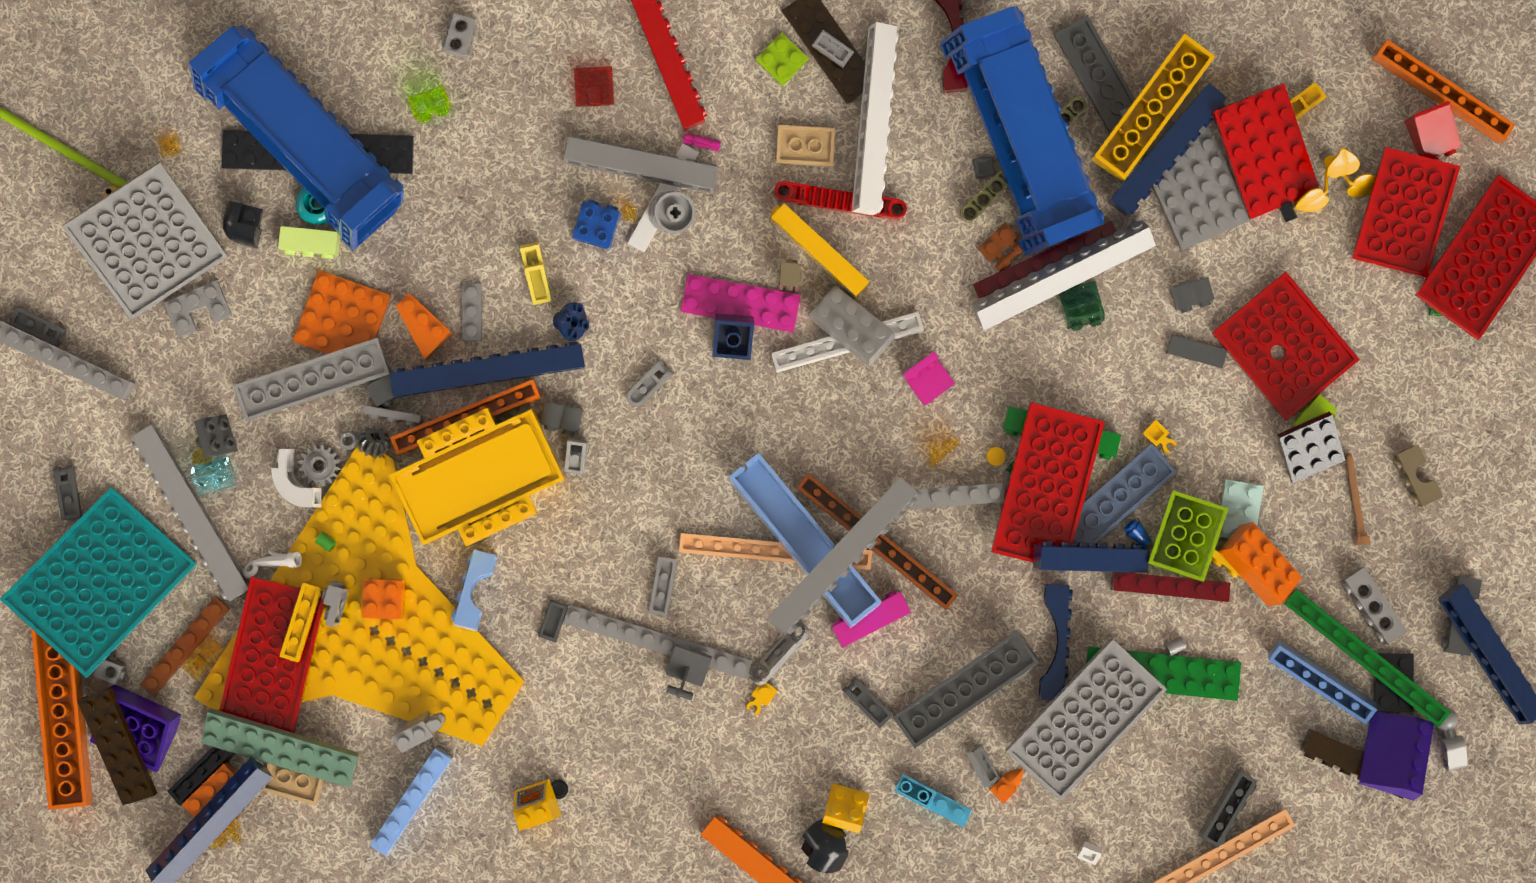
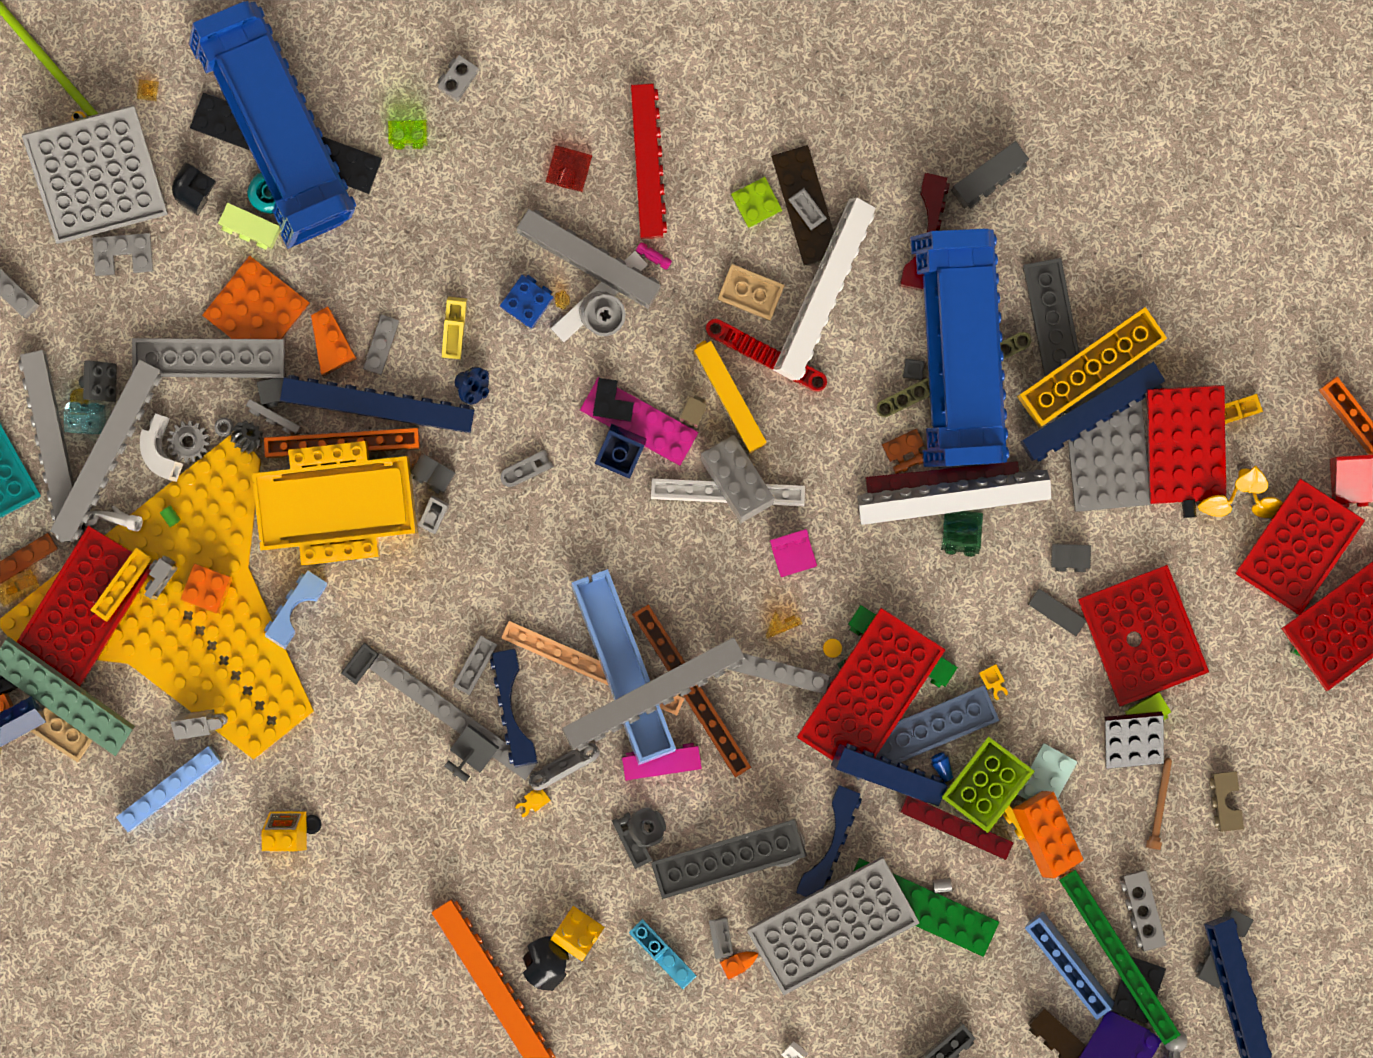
camera: 15 degrees right, 0 degrees up
(243, 500) = (106, 450): none -> light grey brick
(694, 579) = (507, 668): none -> dark blue arch
(704, 297) = (607, 406): none -> black plate
(869, 690) = (656, 829): none -> dark grey plate

